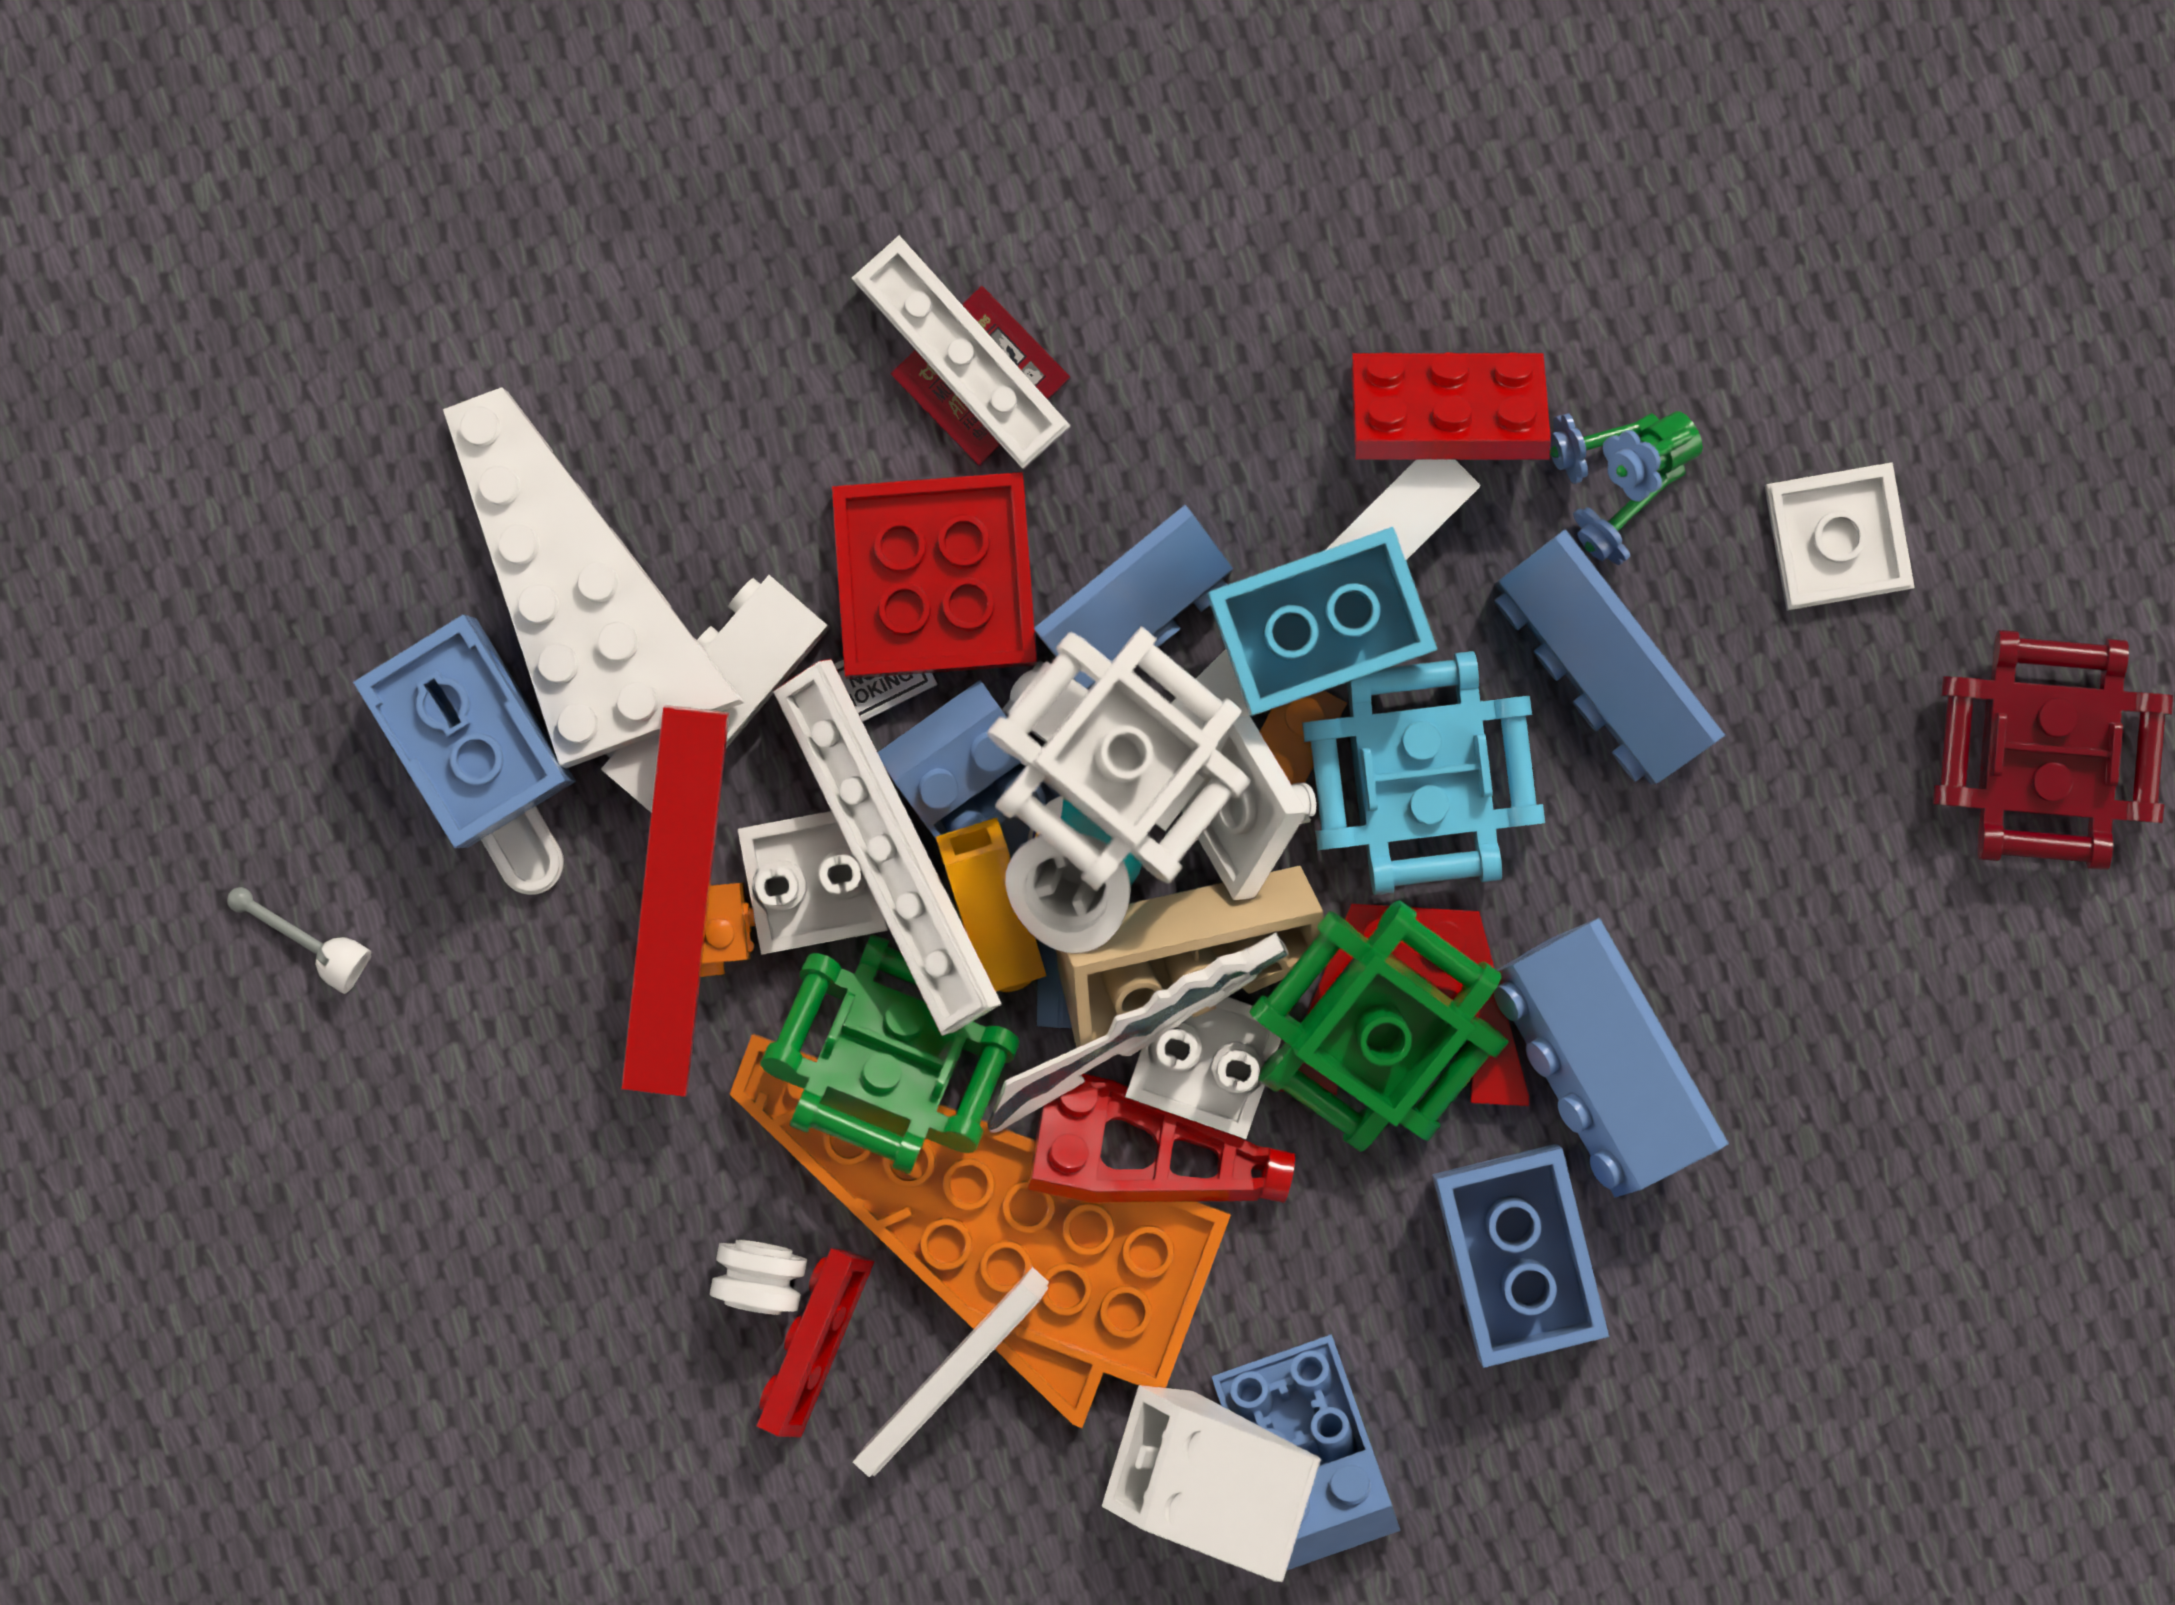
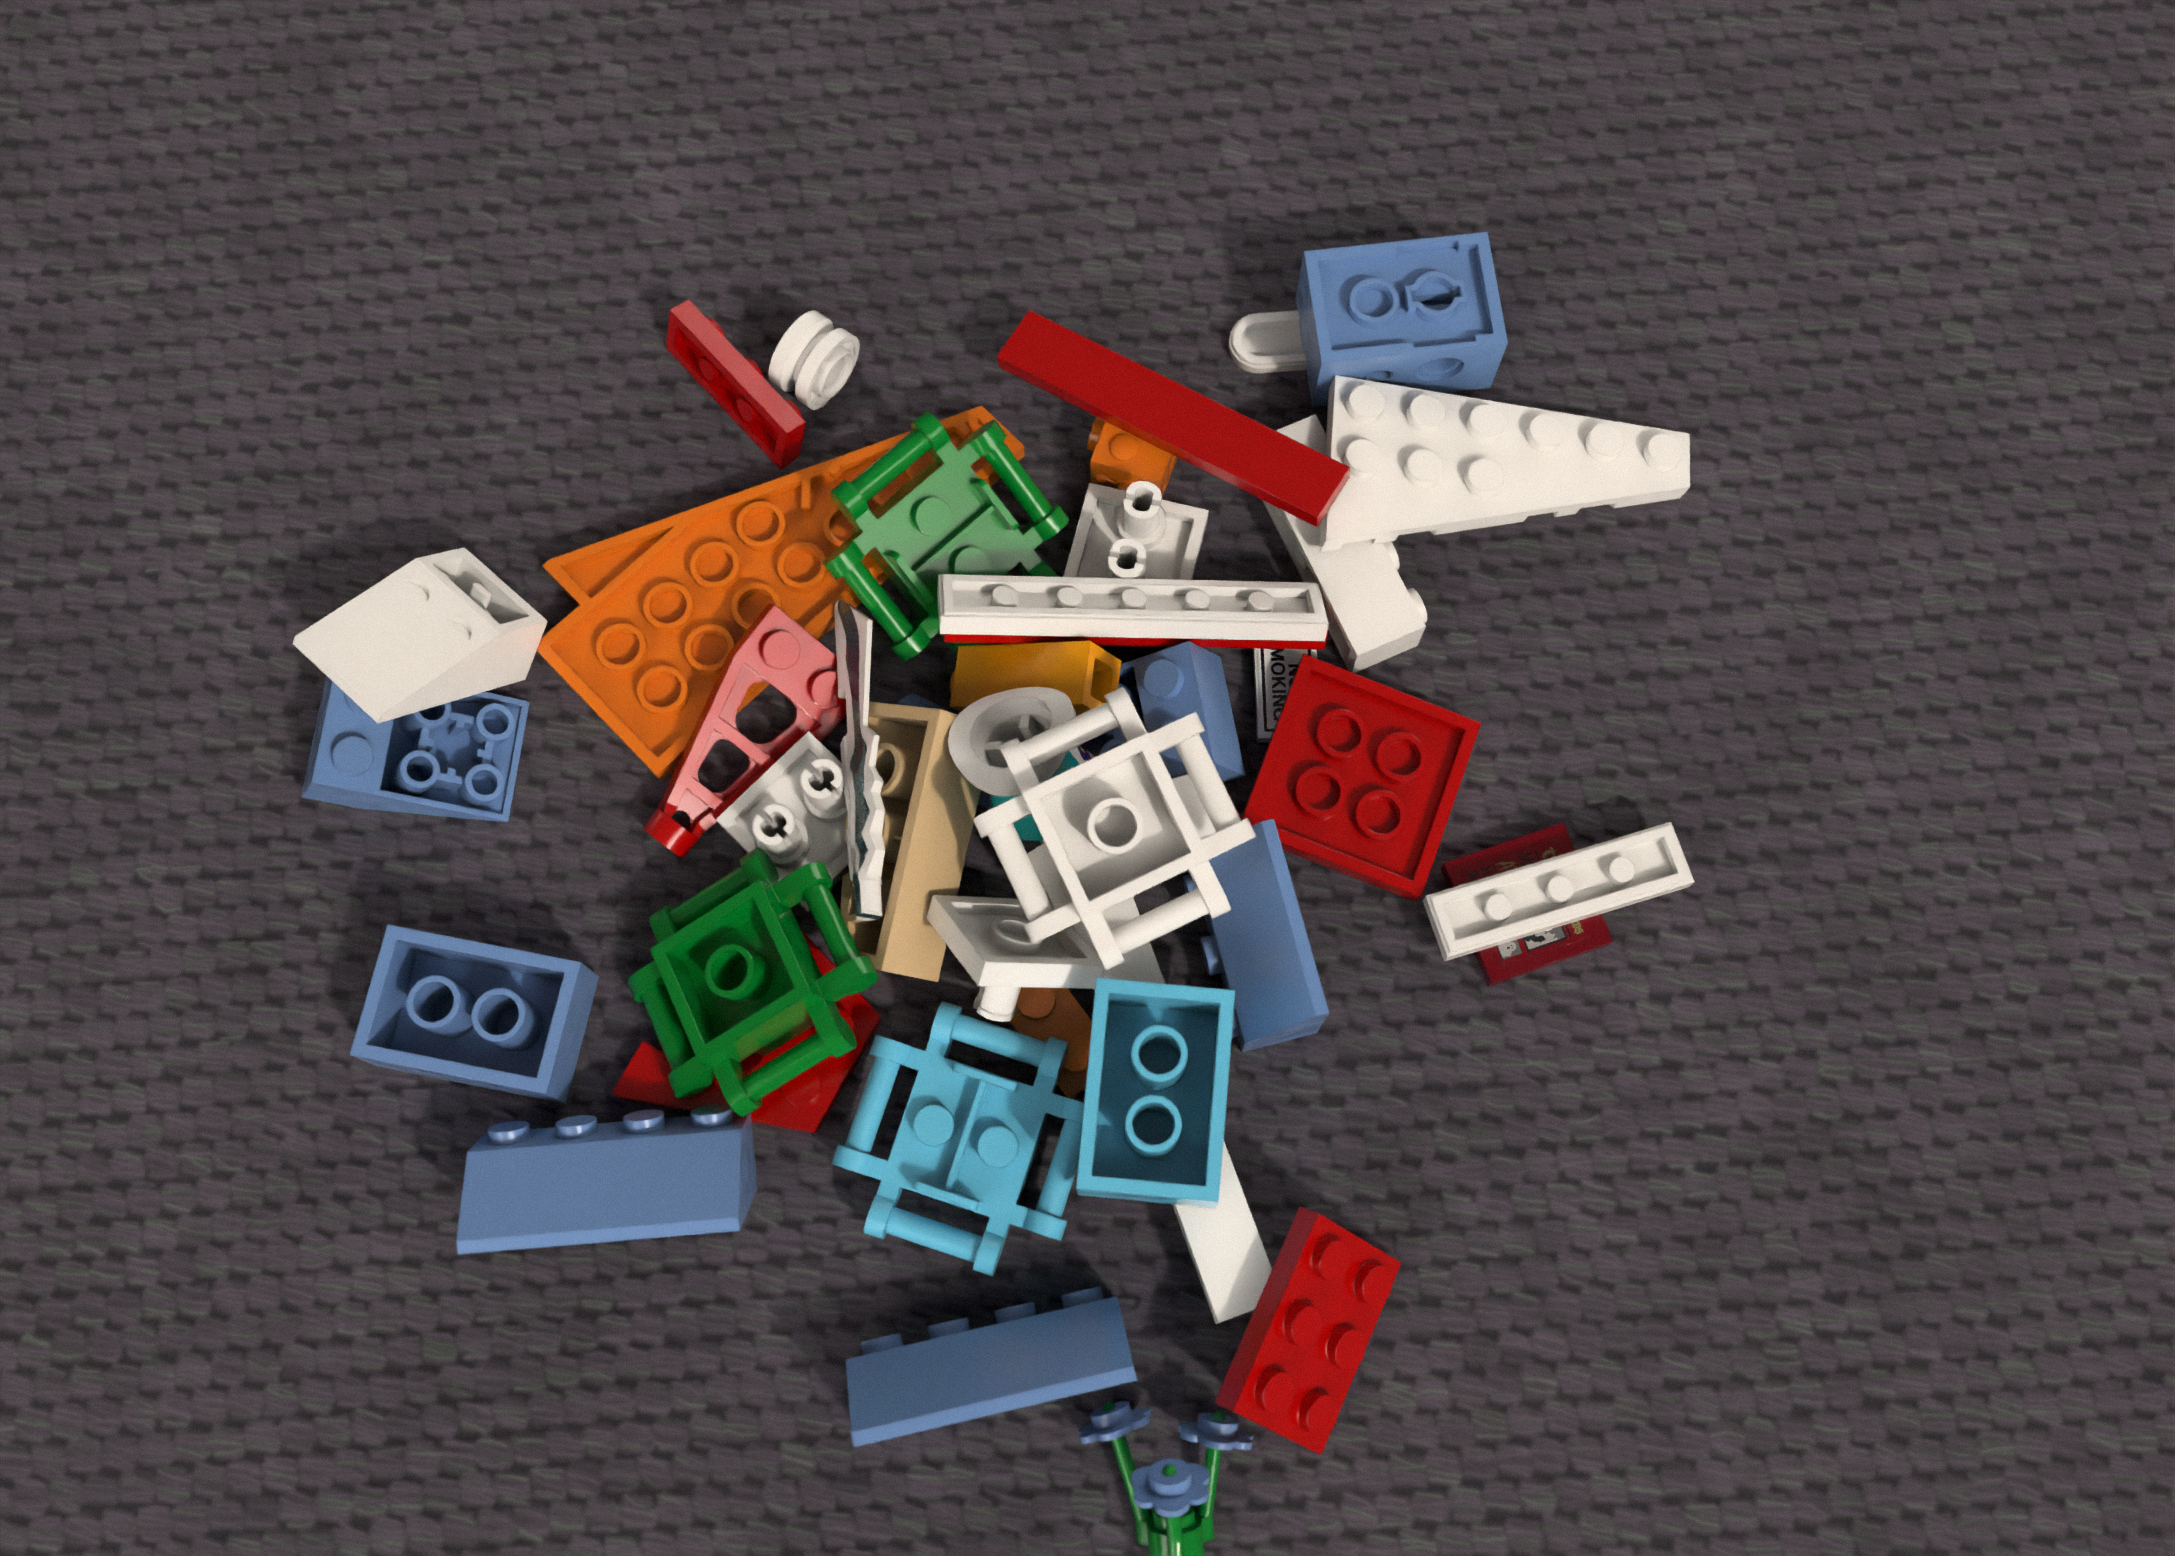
camera: 115 degrees right, 15 degrees down
(337, 961) = (1254, 158): hinge -> none
(952, 1373) = (646, 475): white tile -> none

